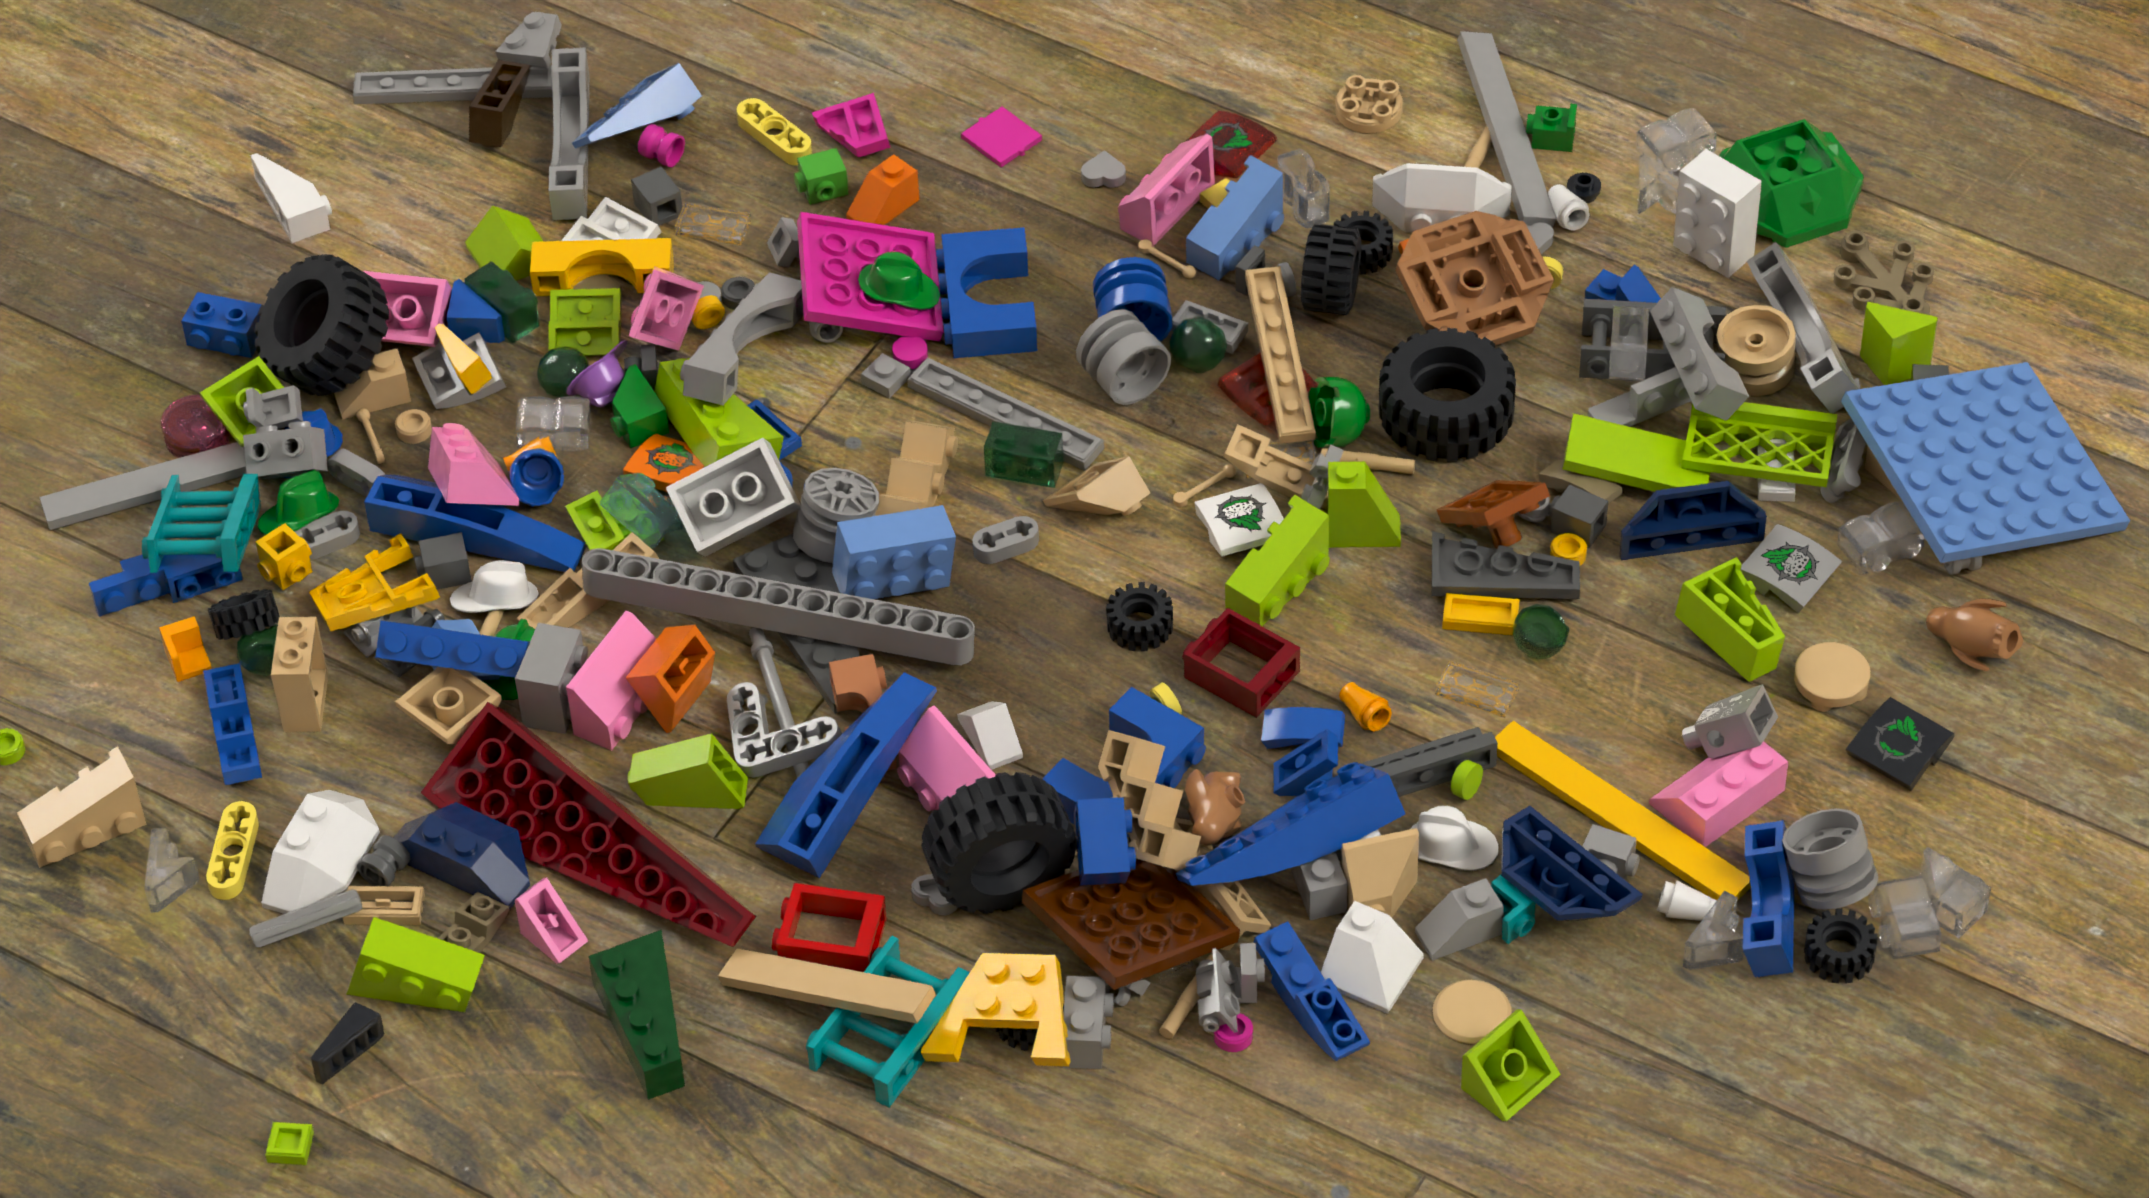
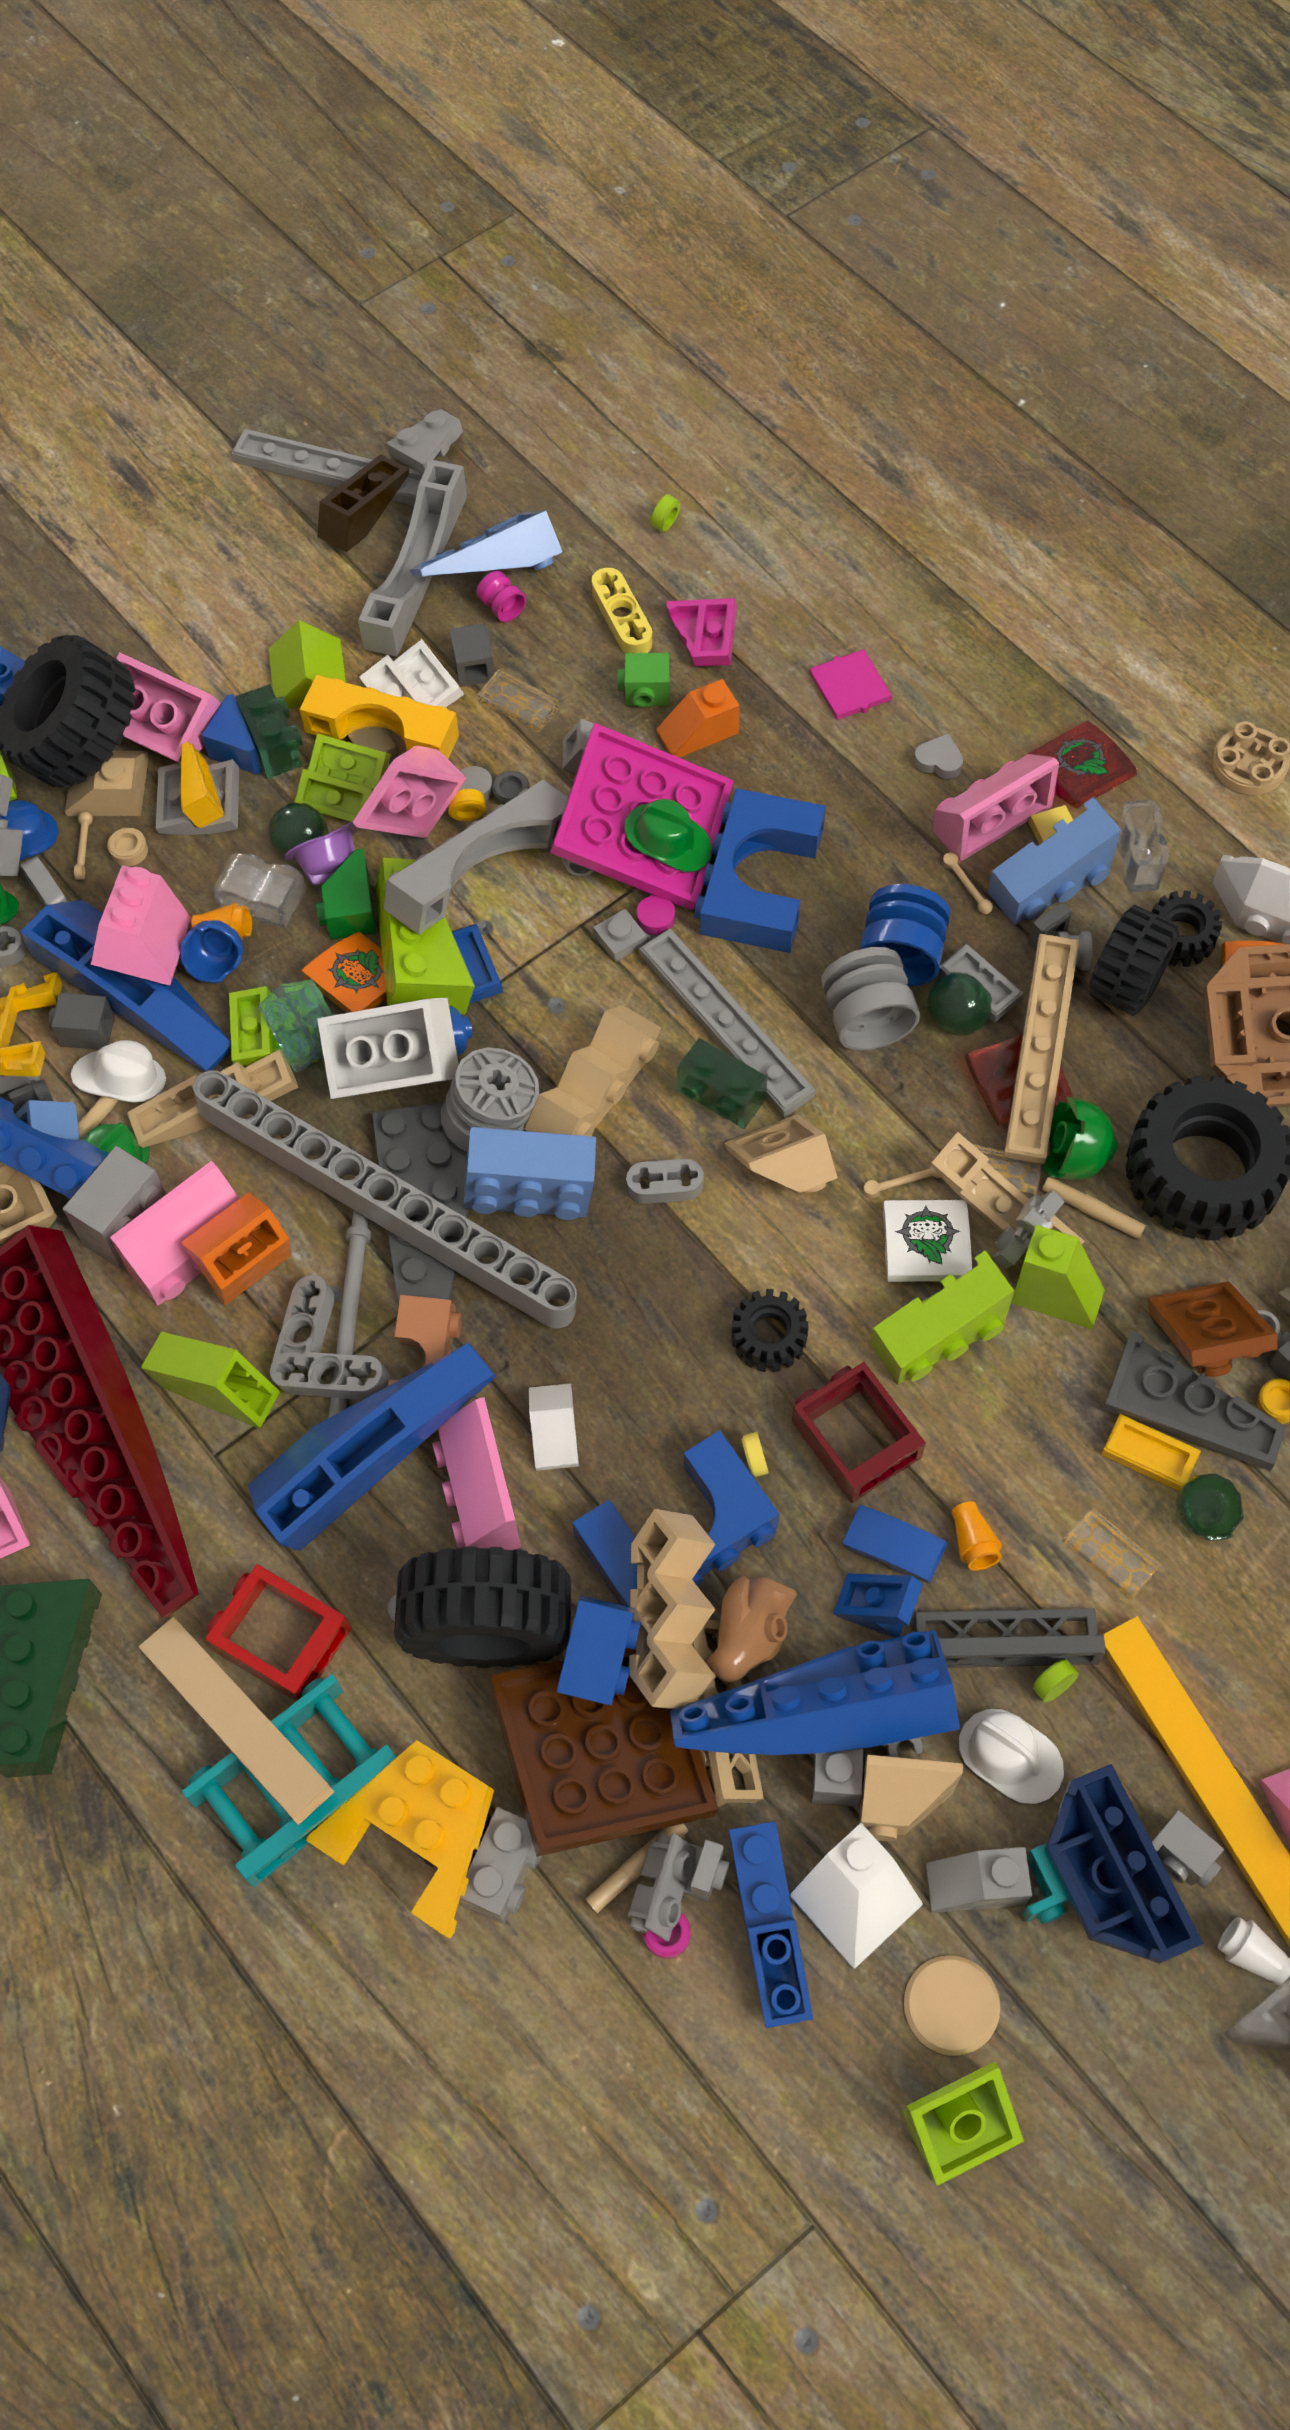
camera: 20 degrees right, 15 degrees up
(292, 199) = (122, 560): white slope -> none
(647, 365) = (375, 850): dark grey tile -> none
(779, 43) = (665, 513): none -> lime tile

